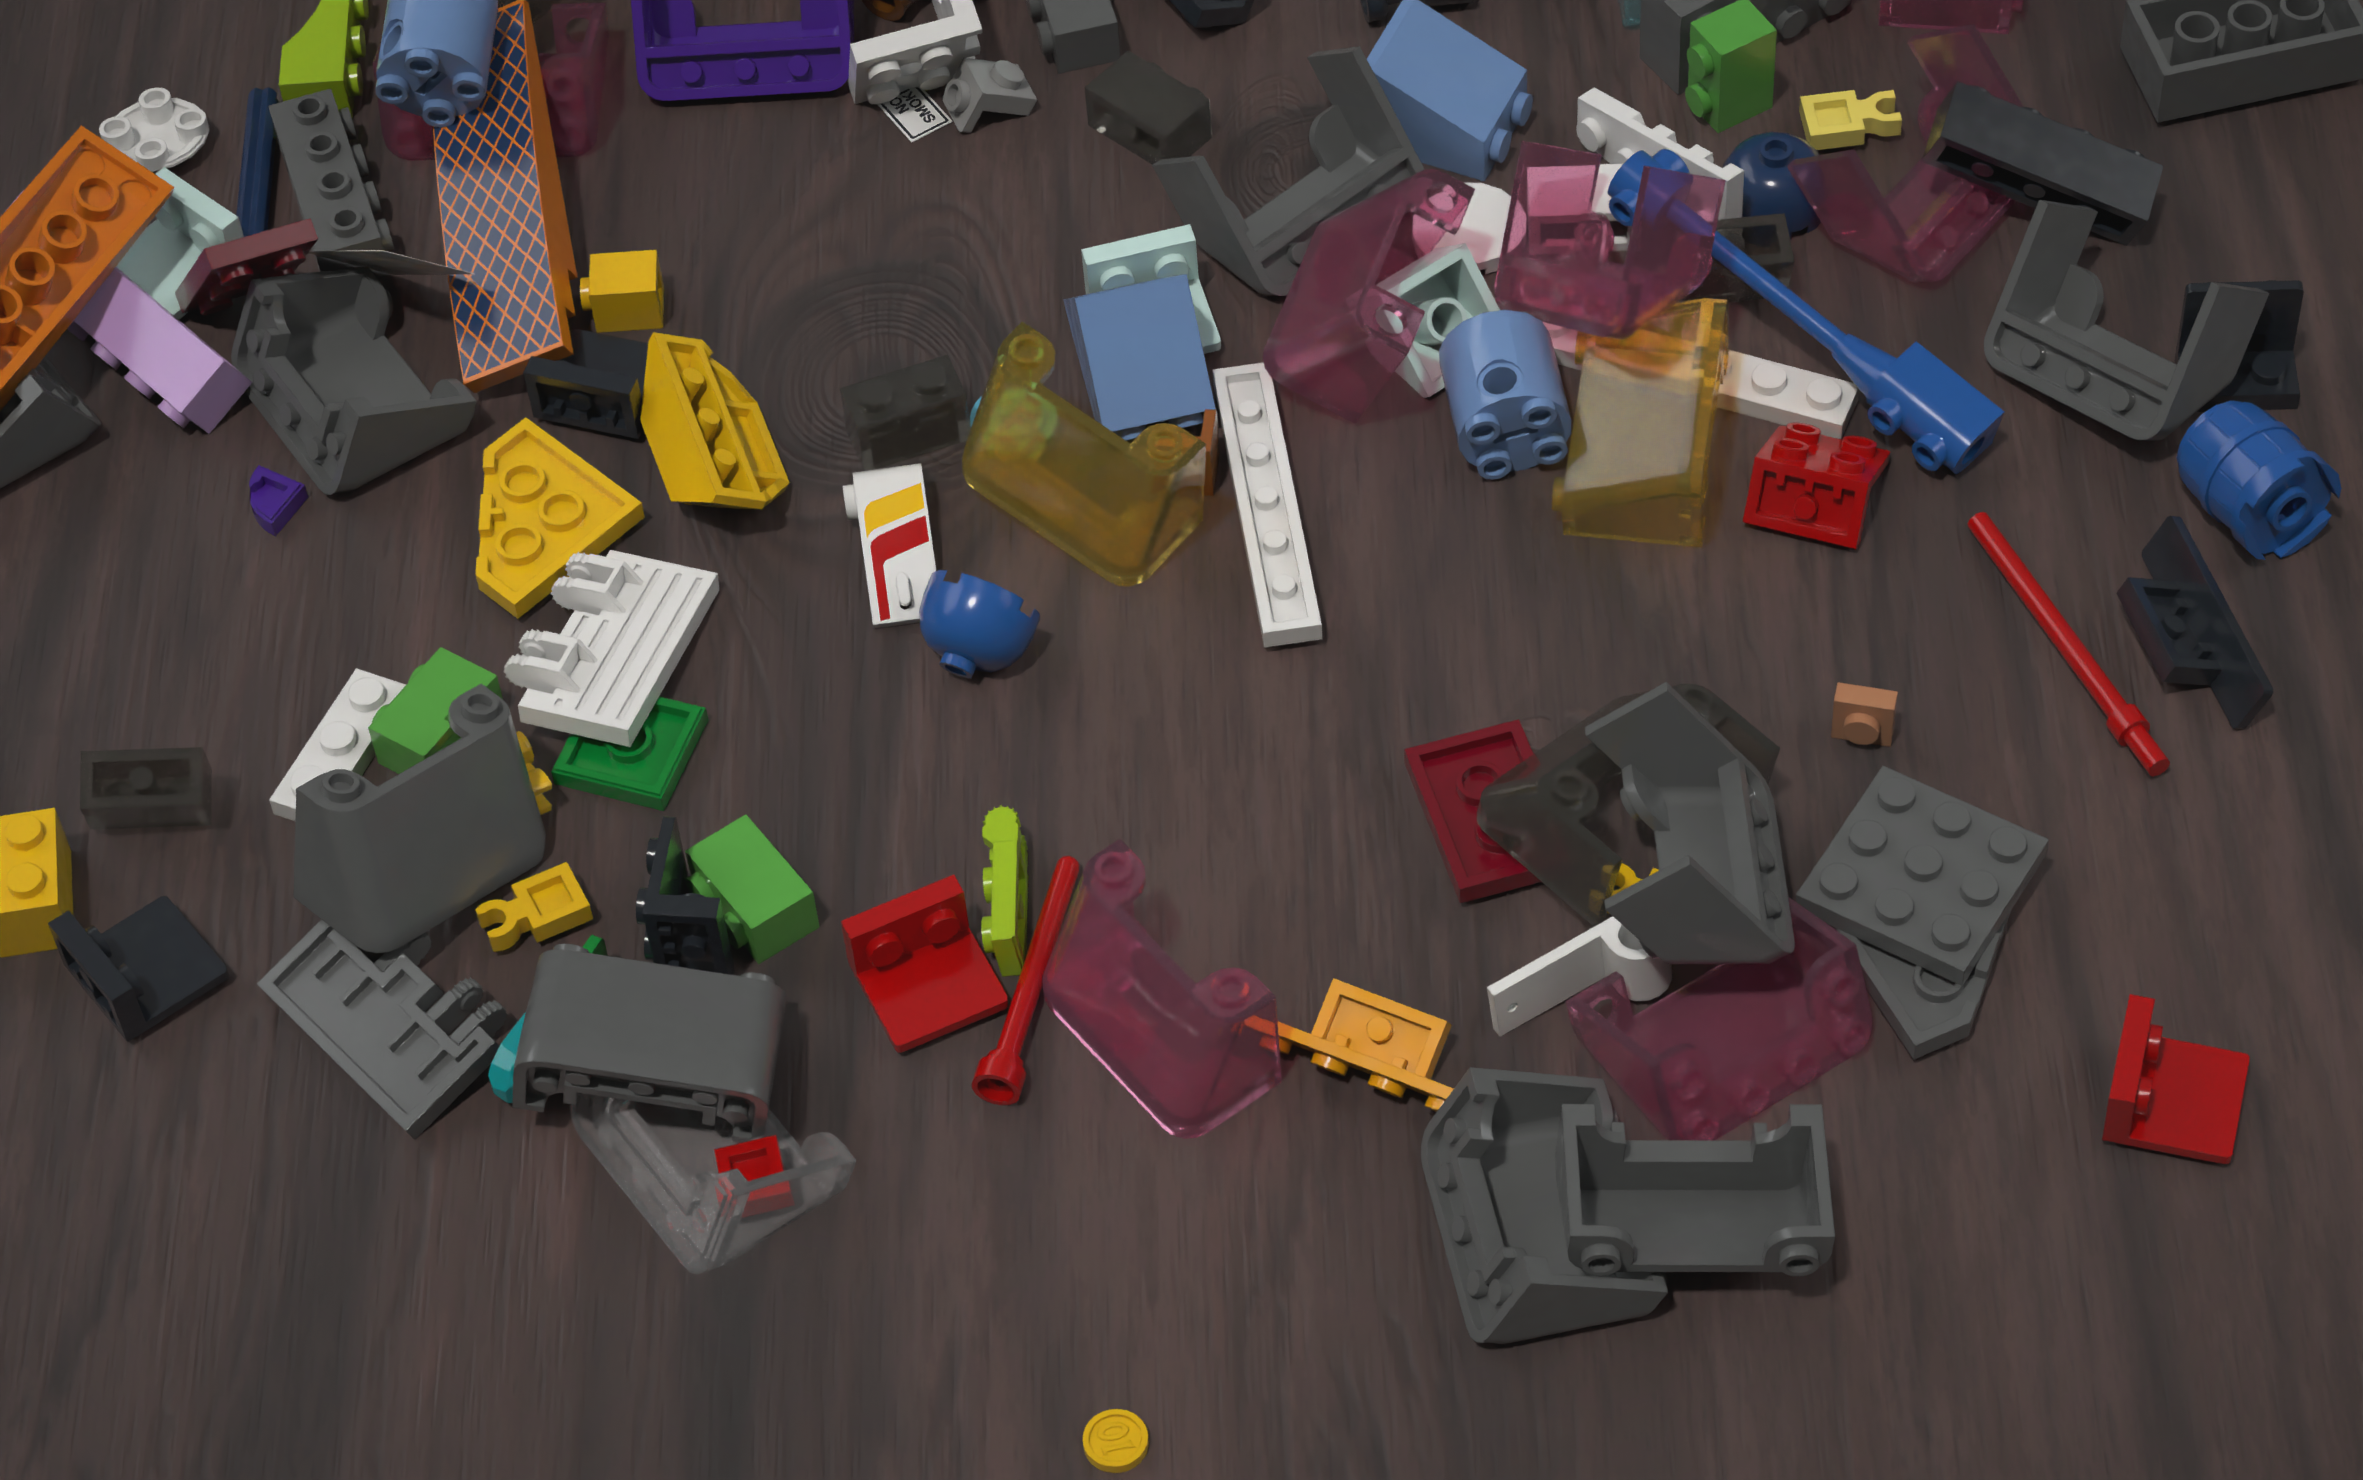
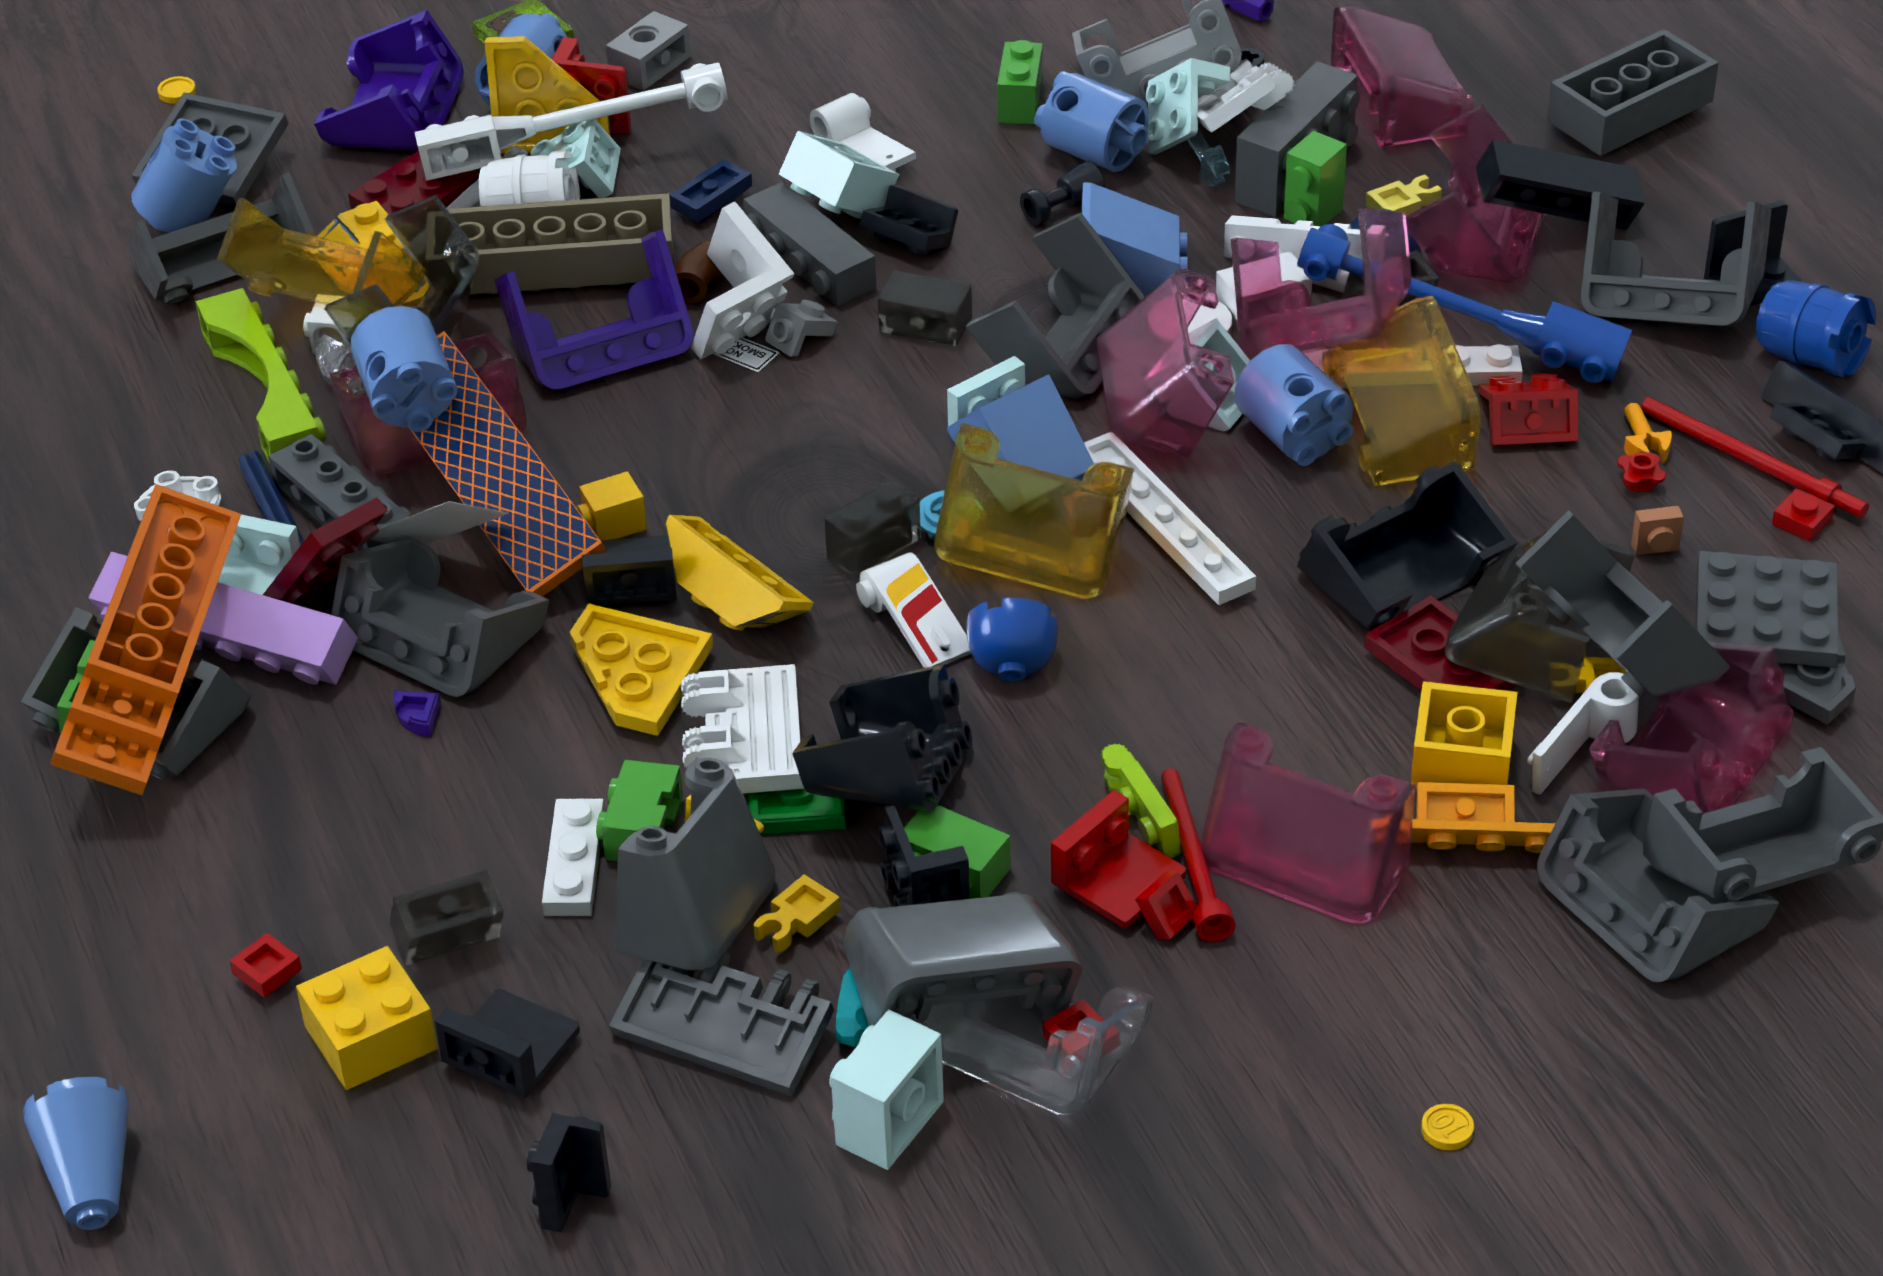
camera: 25 degrees left, 10 degrees down
(94, 1151) = (567, 1162): none -> black bracket
(490, 1175) = (887, 1088): none -> light aqua brick
(761, 741) = (895, 743): none -> black windscreen
(952, 1041) = (1167, 905): none -> red plate
(1428, 936) = (1463, 735): none -> yellow brick
(1522, 650) = (1407, 553): none -> black windscreen
(1902, 630) = (1641, 471): none -> red plate
(1946, 568) = (1644, 435): none -> light orange bar
(2078, 747) = (1803, 514): none -> red plate

